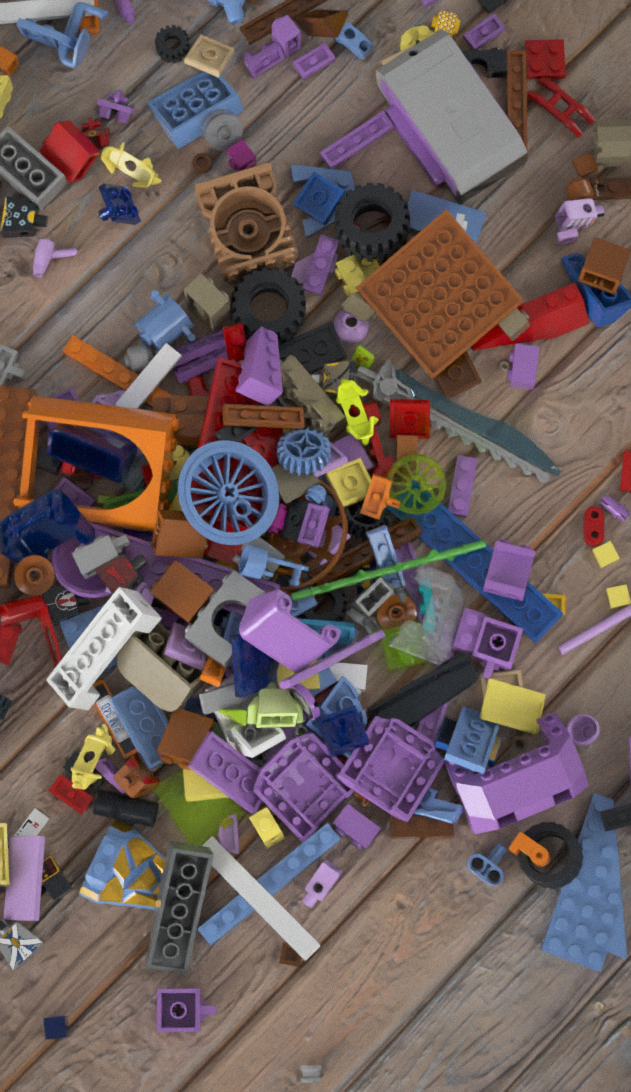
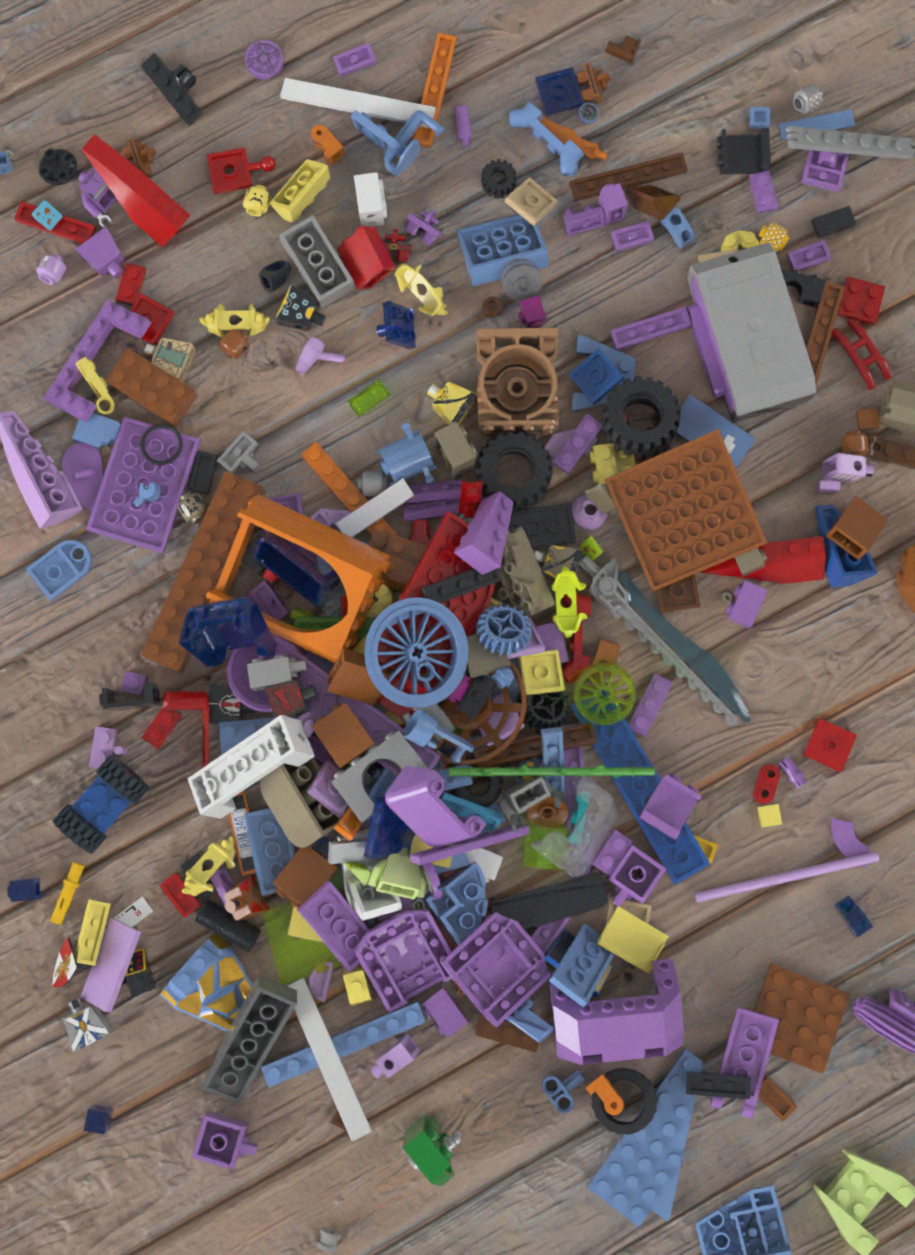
camera: 15 degrees right, 5 degrees up
(38, 584) = (203, 680): dark orange dish -> none
(57, 96) = (370, 199): none -> white piece
(110, 280) = (368, 398): none -> clear neon green tile
(190, 260) = (452, 402): none -> light yellow torso
(263, 416) = (474, 583): dark orange tile -> none
(313, 525) = (491, 707): medium lavender plate -> none
(342, 731) = (458, 920): clear blue plate -> none
(378, 497) = (563, 696): orange plate -> none
(381, 953) = (430, 1150): none -> green piece
(410, 418) = (618, 624): red plate -> none
(583, 729) = (694, 984): lavender piece -> none
(618, 596) = (769, 861): light yellow tile -> none

